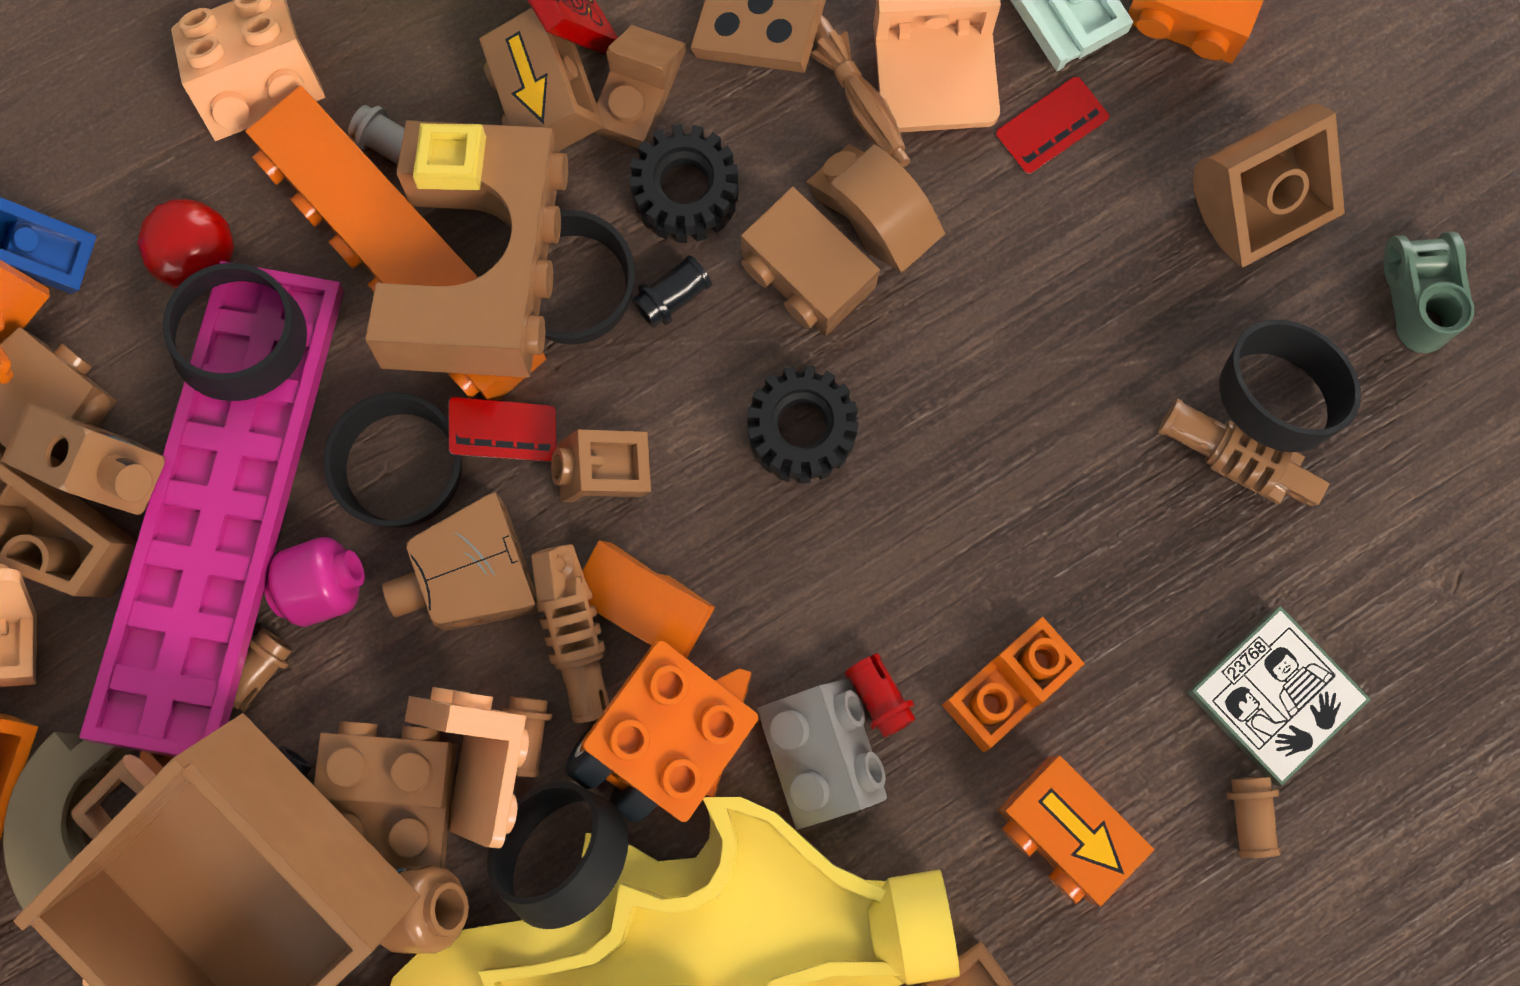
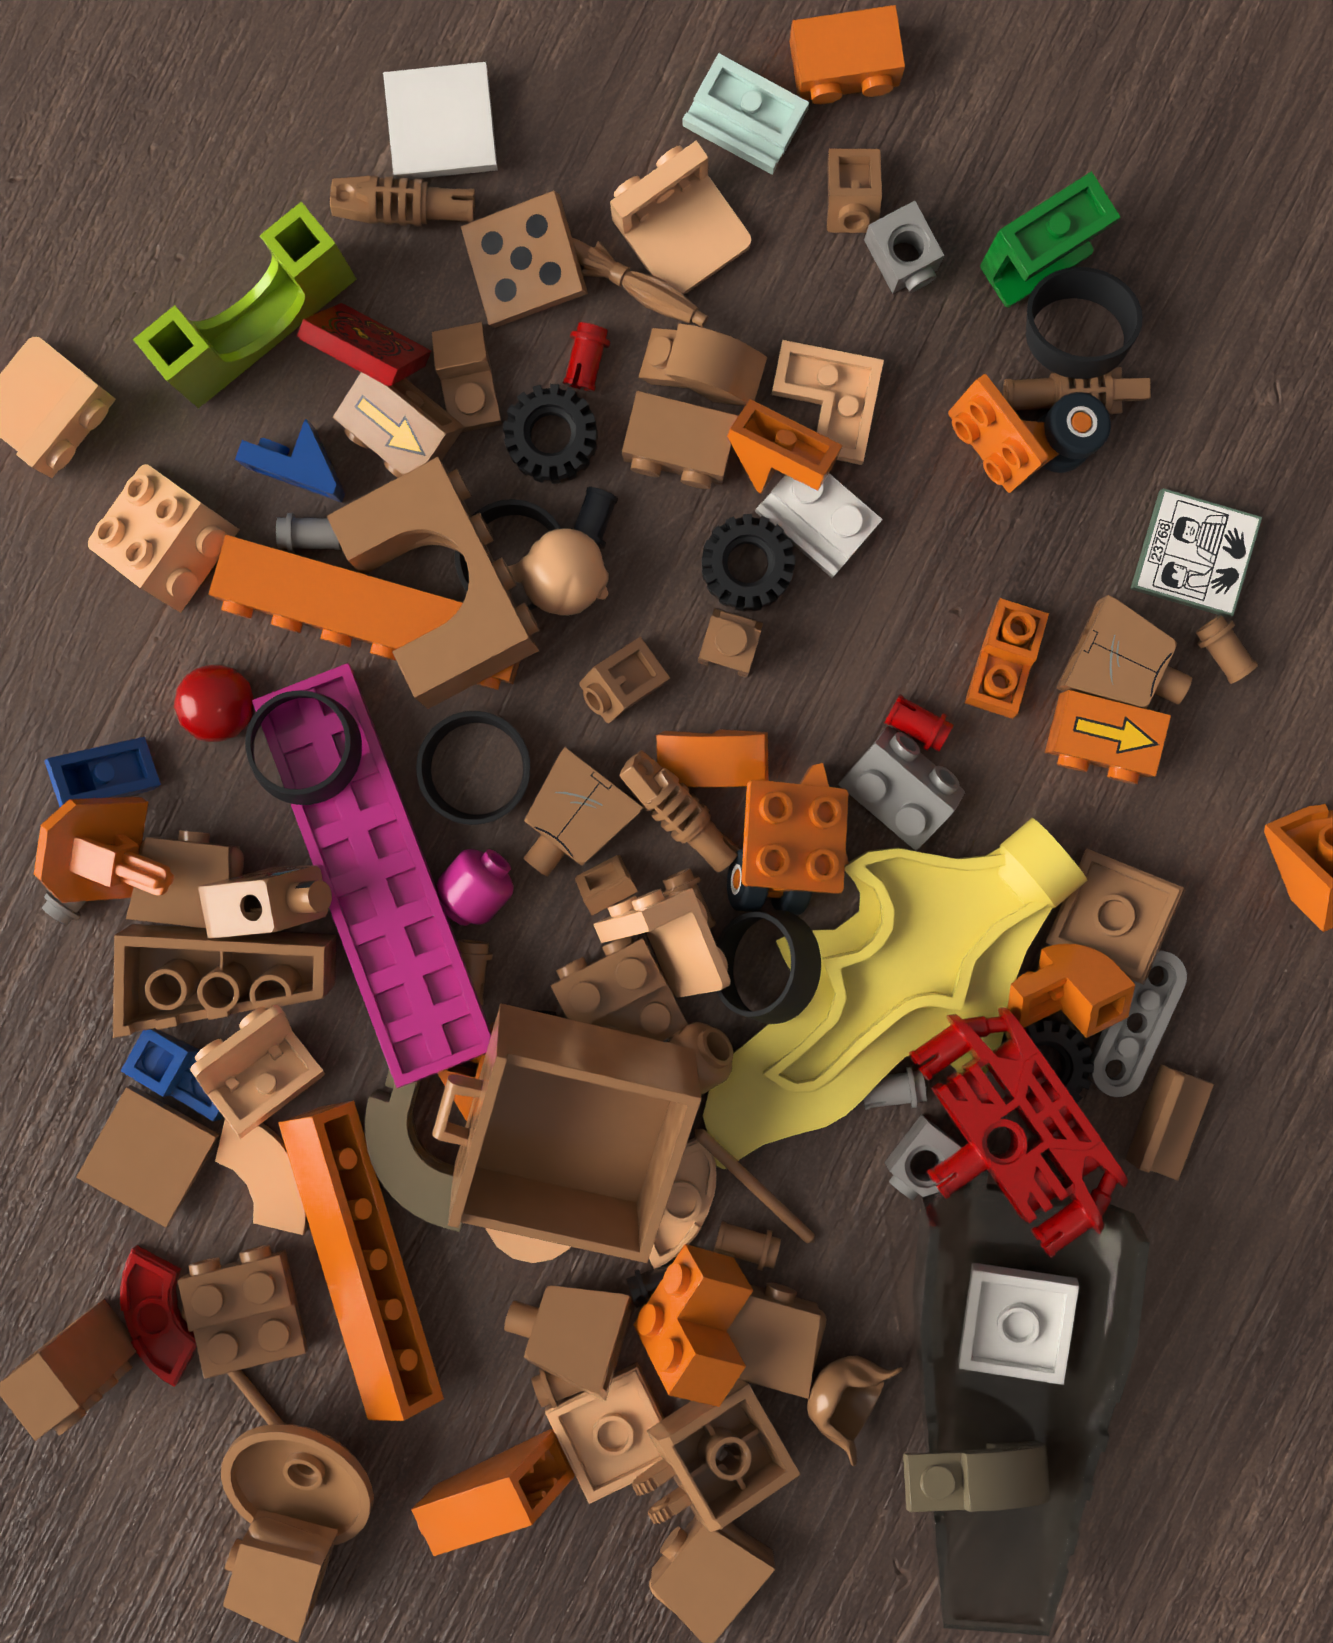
camera: 30 degrees left, 10 degrees up
(426, 70) = (306, 468): none -> blue slope
(448, 663) = (605, 884): none -> medium nougat tile
(449, 156) = (380, 525): light yellow tile -> none
(502, 429) = (535, 698): red sticker -> none
(607, 319) = (563, 572): none -> light nougat hair
(734, 492) = (730, 641): none -> medium nougat window
(766, 131) = (586, 356): none -> red pin
(900, 320) = (774, 442): none -> orange slope
(905, 422) = (820, 523): none -> white plate
(1003, 306) = (837, 381): none -> light nougat plate
(1052, 125) = (792, 218): red sticker -> none
(1127, 130) = (853, 189): none -> medium nougat bracket
(1139, 760) = (1123, 659): none -> medium nougat torso
(1149, 472) = (1018, 448): none -> orange plate
(1158, 190) = (909, 227): none -> light grey brick
(1272, 184) = (985, 171): medium nougat brick -> none
(1301, 275) = (1048, 239): none -> green panel
(1428, 277) = (1138, 172): sand green piece -> none

